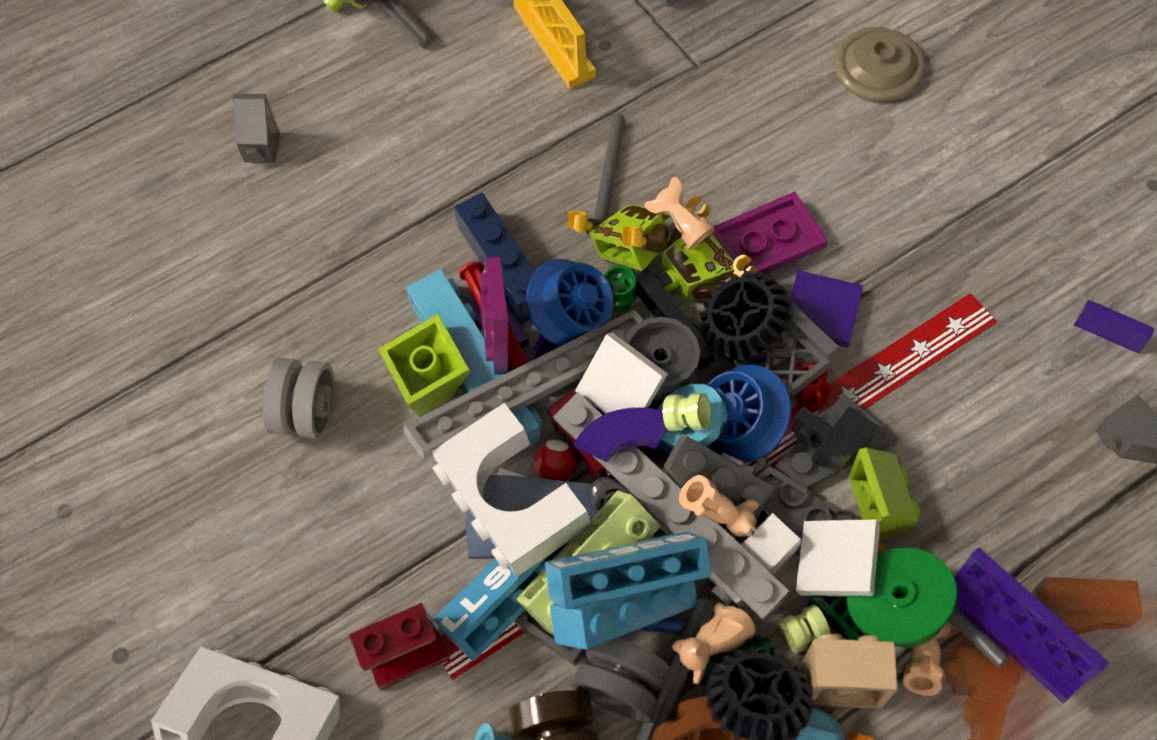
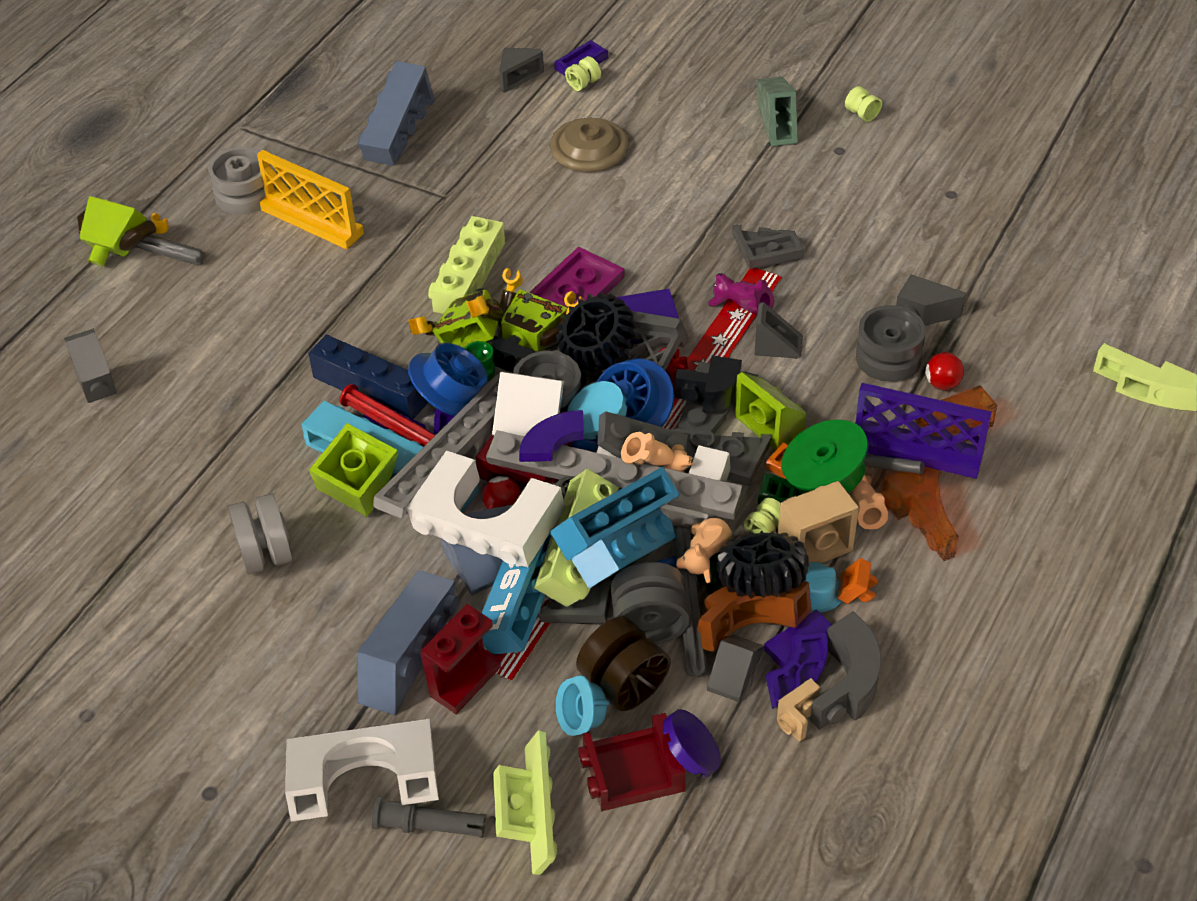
camera: 30 degrees left, 15 degrees down
(370, 585) = (391, 653): none -> sand blue wedge
(494, 315) = (402, 396): magenta plate -> none
(609, 168) = (415, 284): dark grey bar -> none
(670, 202) = (511, 287): light nougat animal -> none
(678, 155) = (468, 262): none -> yellowish green brick
(687, 412) = (587, 400): yellowish green wheel -> none
(838, 558) = (763, 456): white tile -> none
(945, 400) = (775, 335): none -> dark grey slope
(947, 341) = (743, 293): none -> magenta animal
(1000, 278) = (767, 246): none -> dark grey wing
(1065, 472) = (890, 343): none -> dark grey wheel
(1108, 106) = (778, 110): none -> sand green slope
(1109, 536) = (944, 371): none -> red piece
(1114, 326) = (867, 243): dark purple tile -> none

